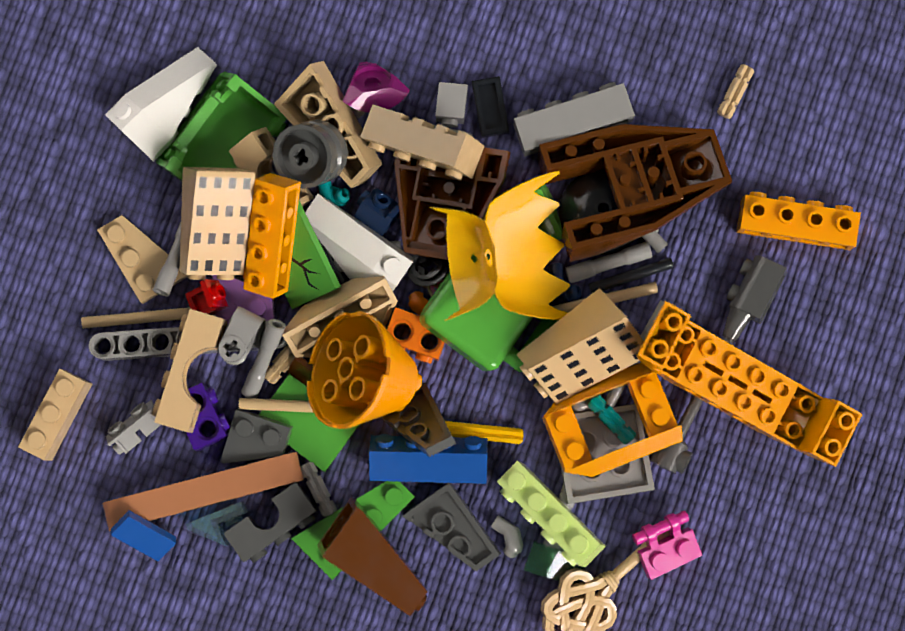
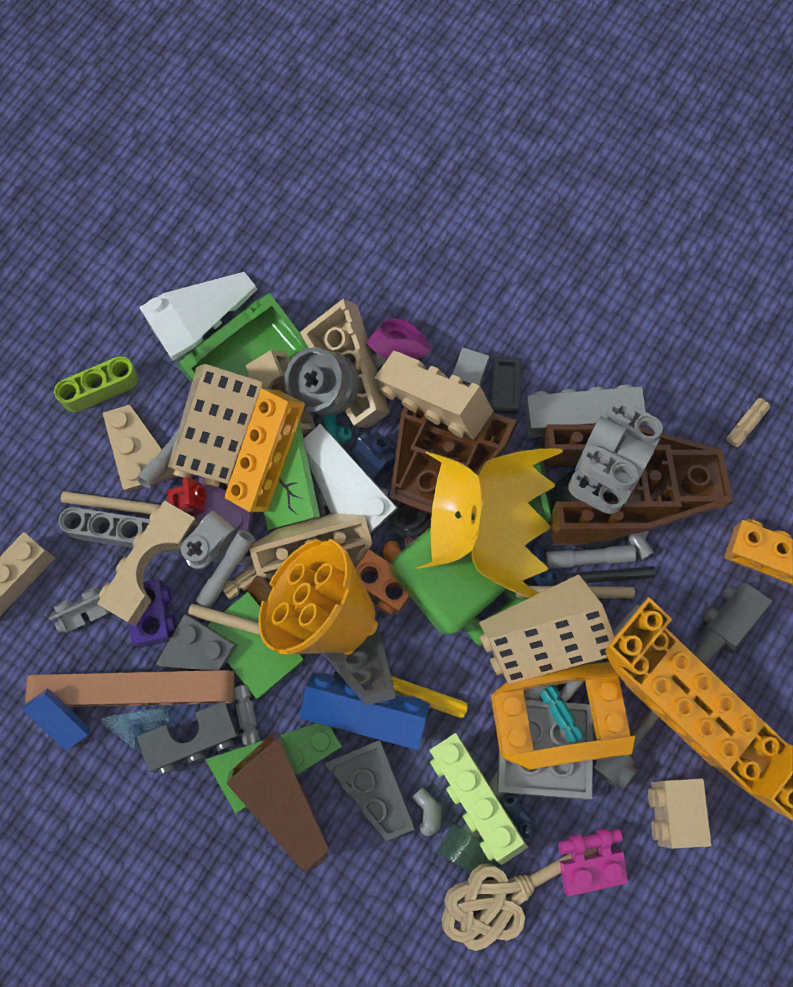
camera: 10 degrees right, 10 degrees down
(69, 203) = (83, 382): none -> lime beam
(592, 520) = (520, 817): none -> dark blue arm
(610, 168) = (616, 447): none -> light grey piece
(735, 483) = (679, 813): none -> tan brick

